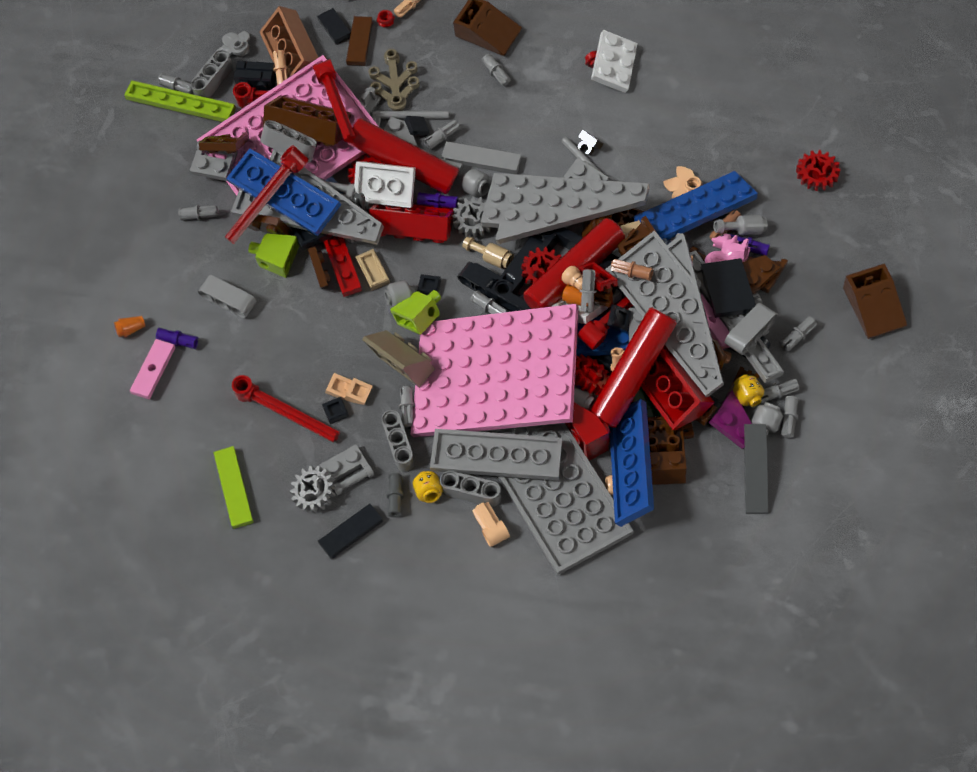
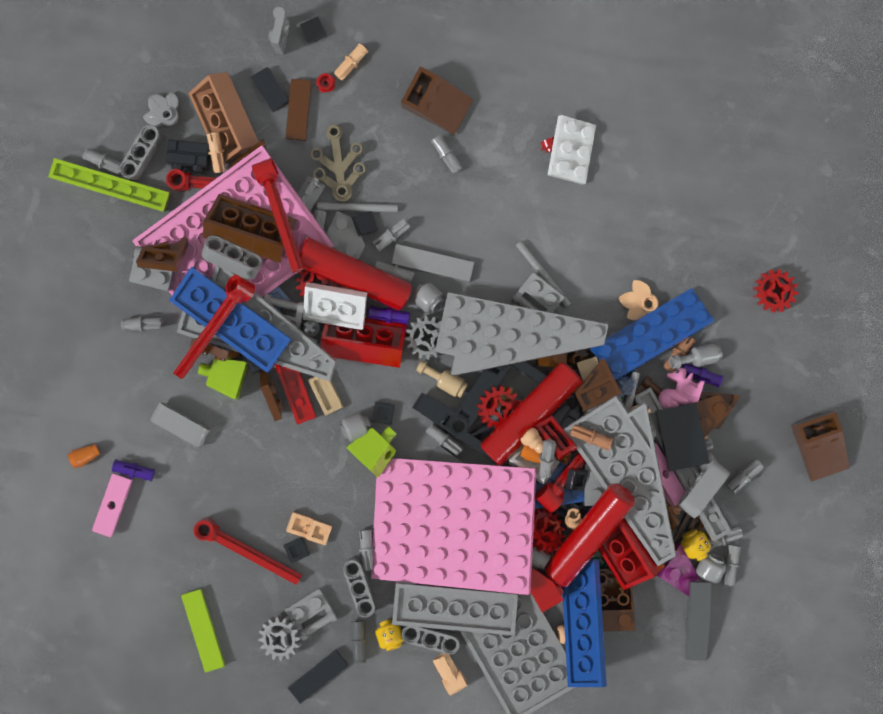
camera: 10 degrees left, 25 degrees up
(400, 356) = (358, 504): dark tan slope -> none
(589, 140) = (546, 248): tile -> none

